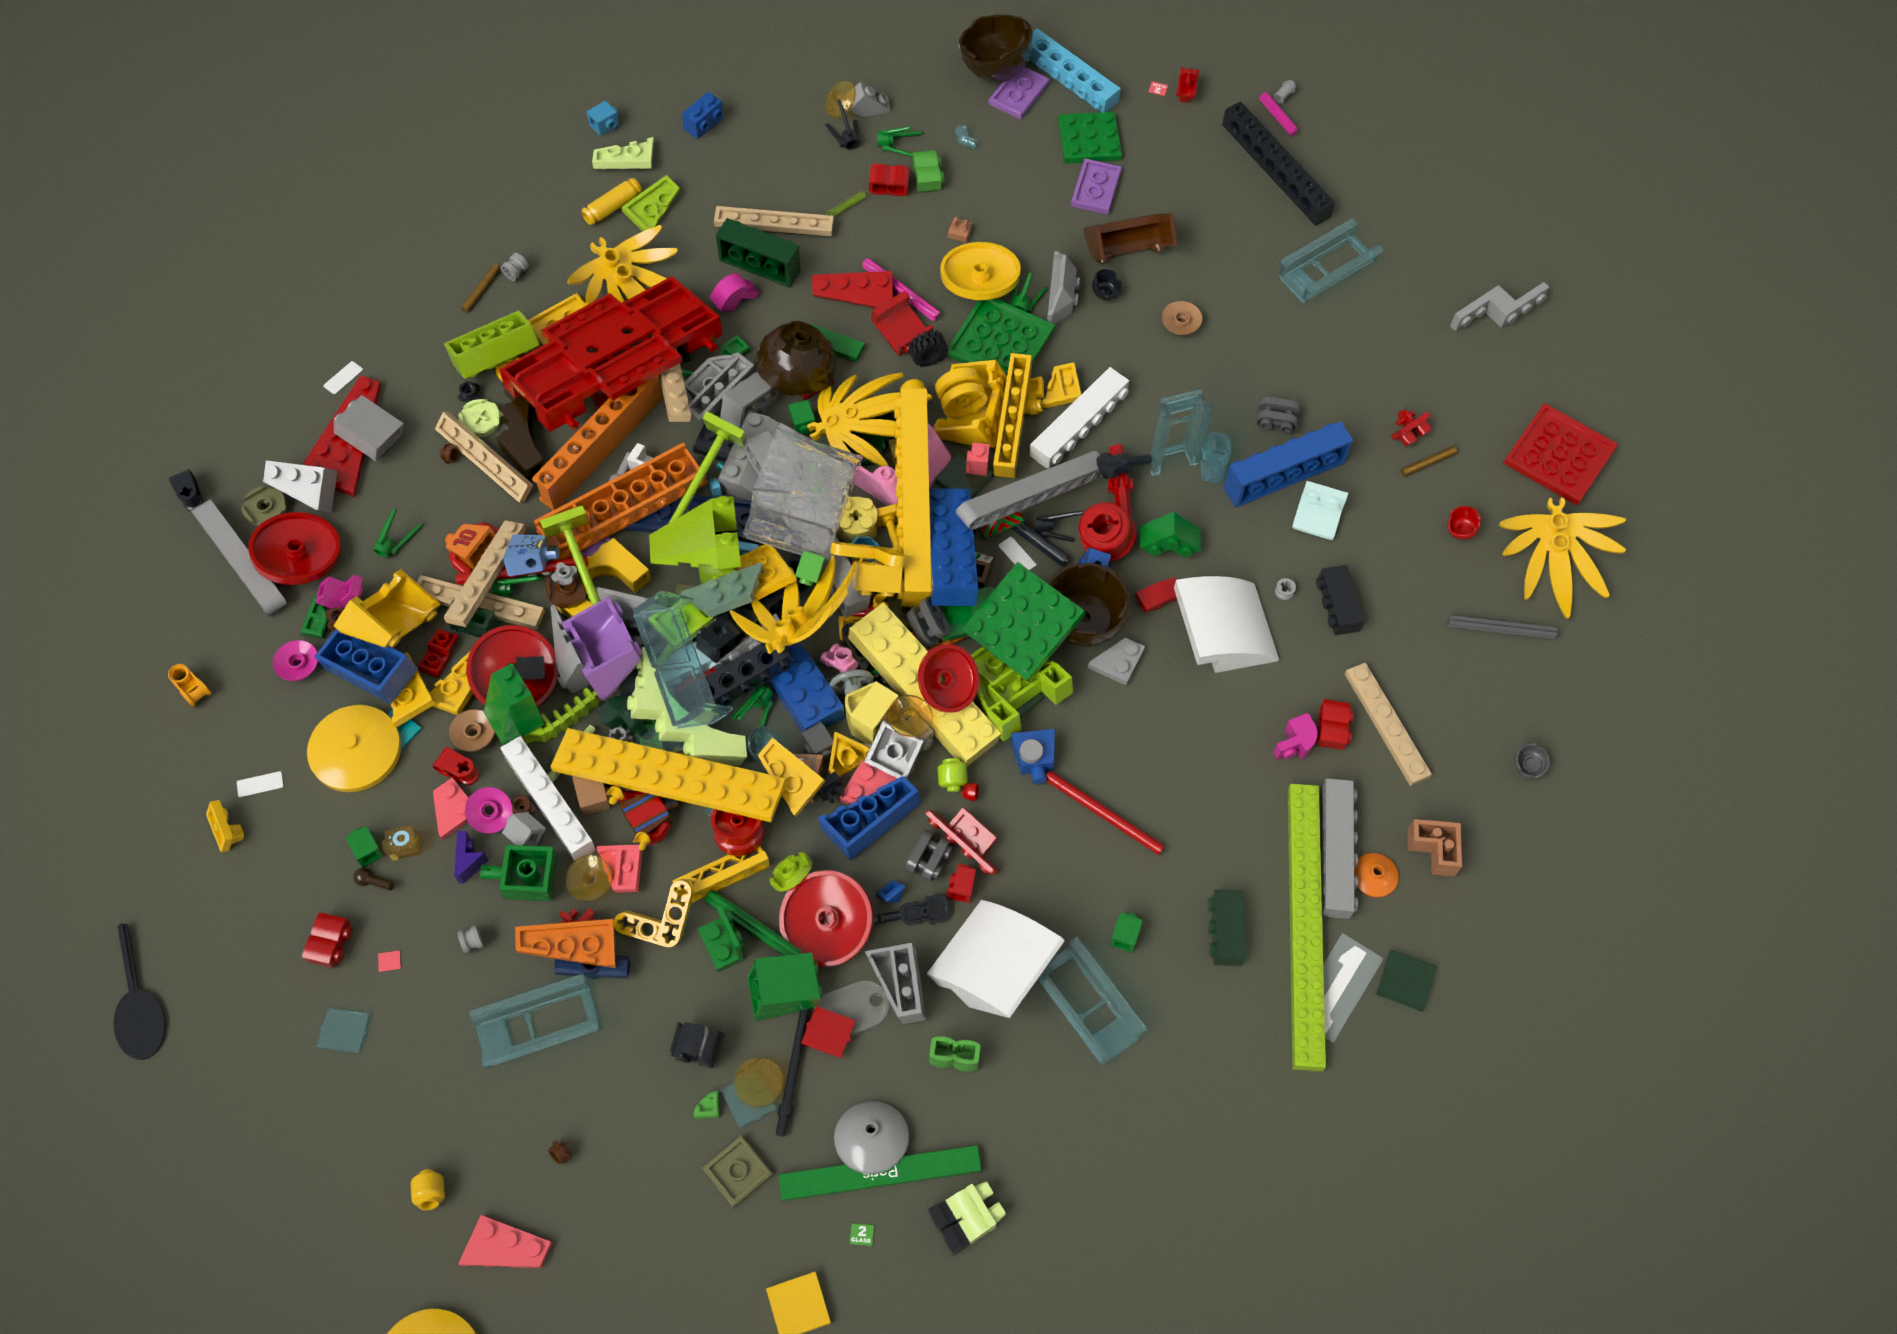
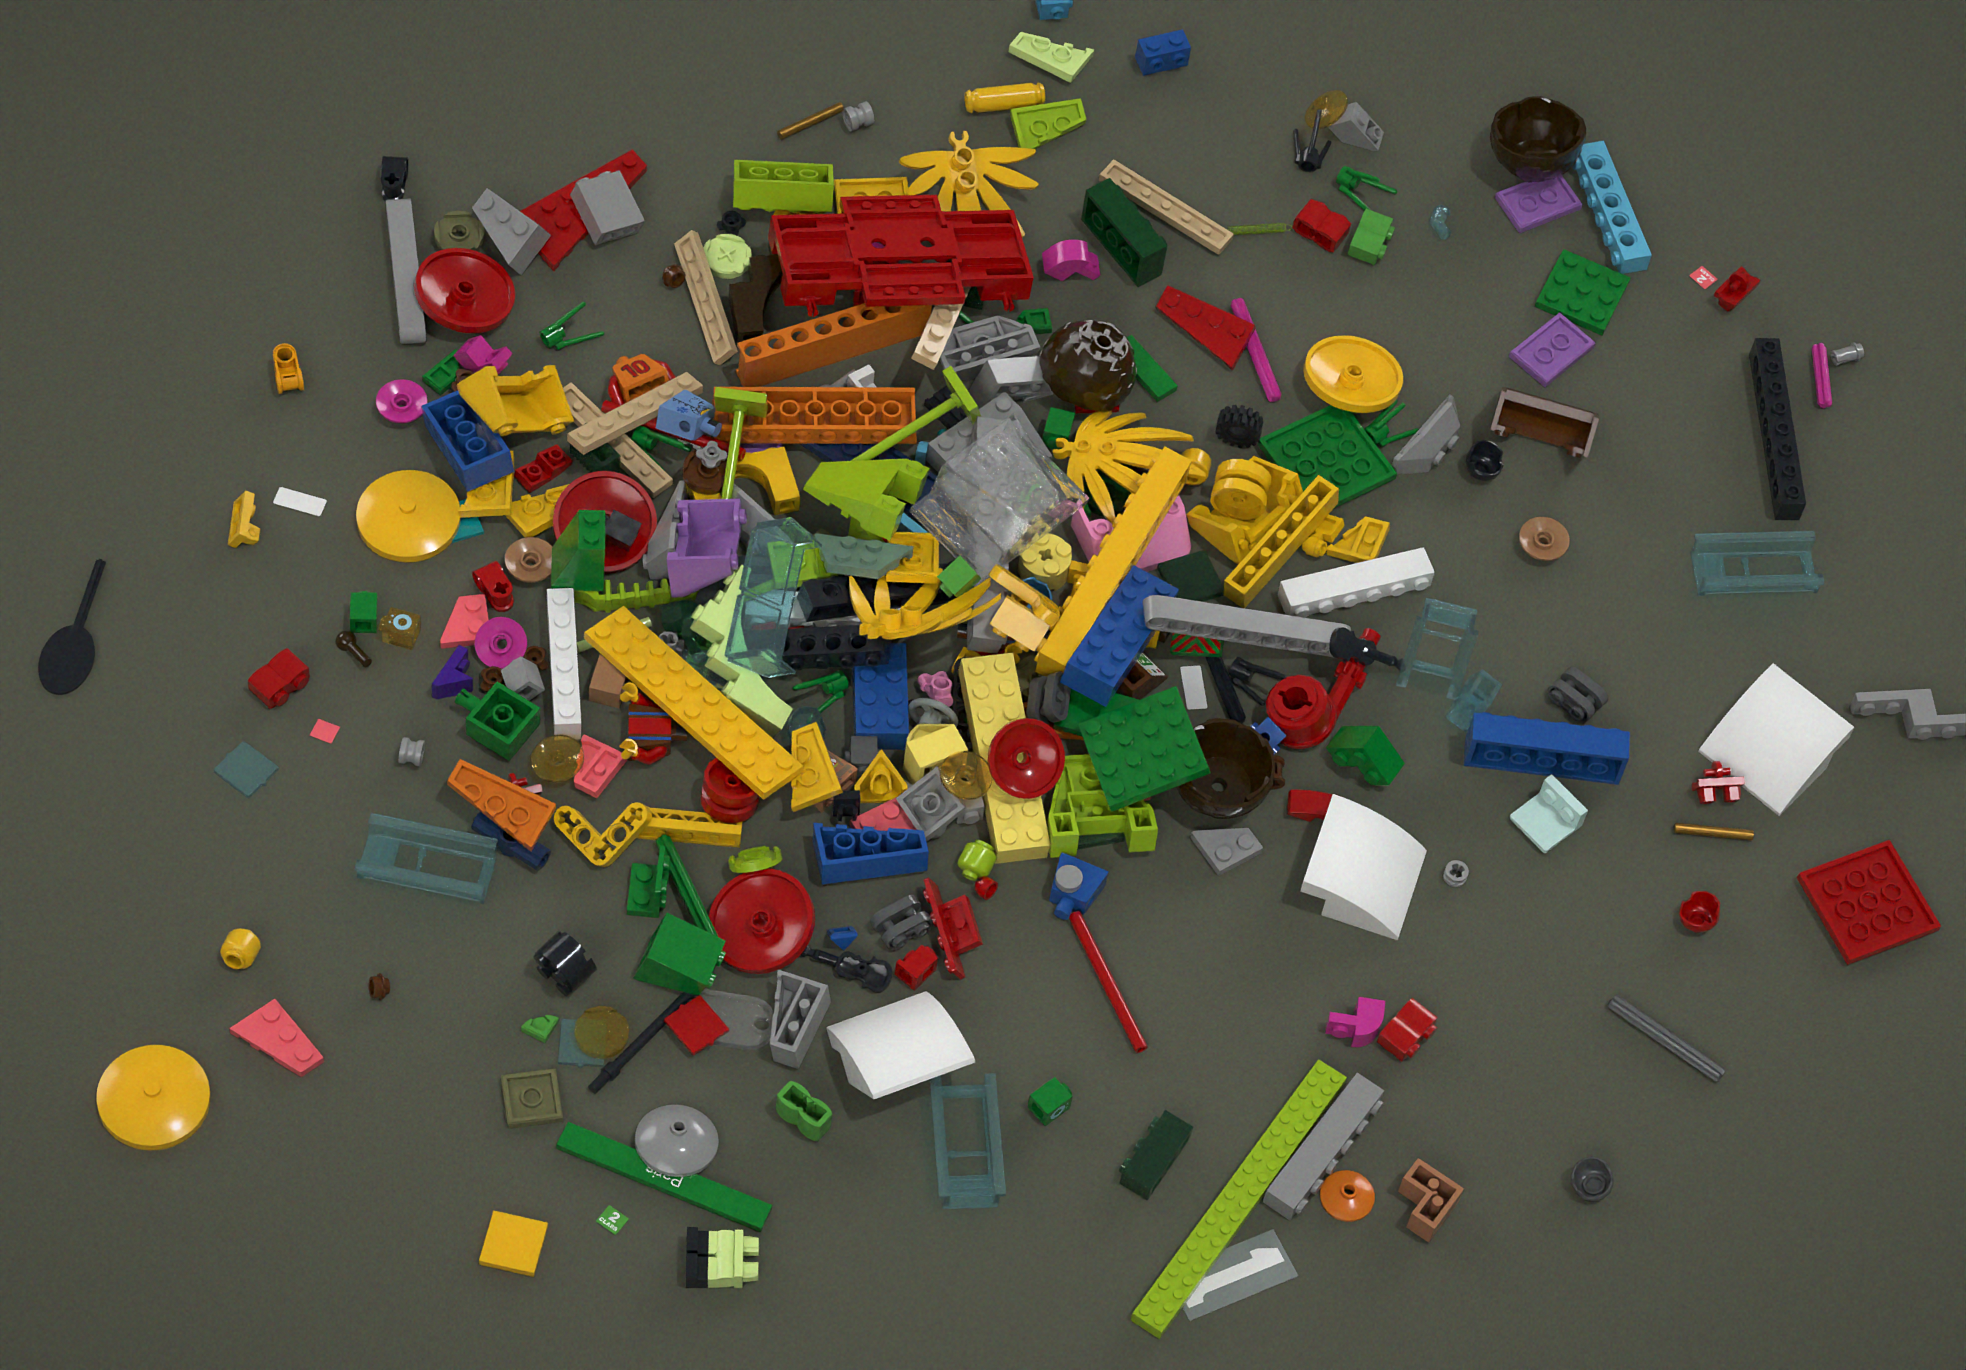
camera: 25 degrees right, 5 degrees down
(343, 377) = (613, 142): white sticker -> none
(493, 840) = (491, 673): none -> reddish brown plate
(898, 323) = (1227, 382): red panel -> none
(960, 229) = (1365, 319): nougat tile -> none
(978, 459) = (1214, 567): coral brick -> none
(1340, 600) = (1504, 914): black brick -> none
(1388, 724) = (1468, 1062): tan plate -> none
(1406, 980) = (1305, 1306): clear green tile -> none
(1429, 373) = (1777, 739): none -> white slope
(1558, 535) = (1796, 982): yellow plant -> none

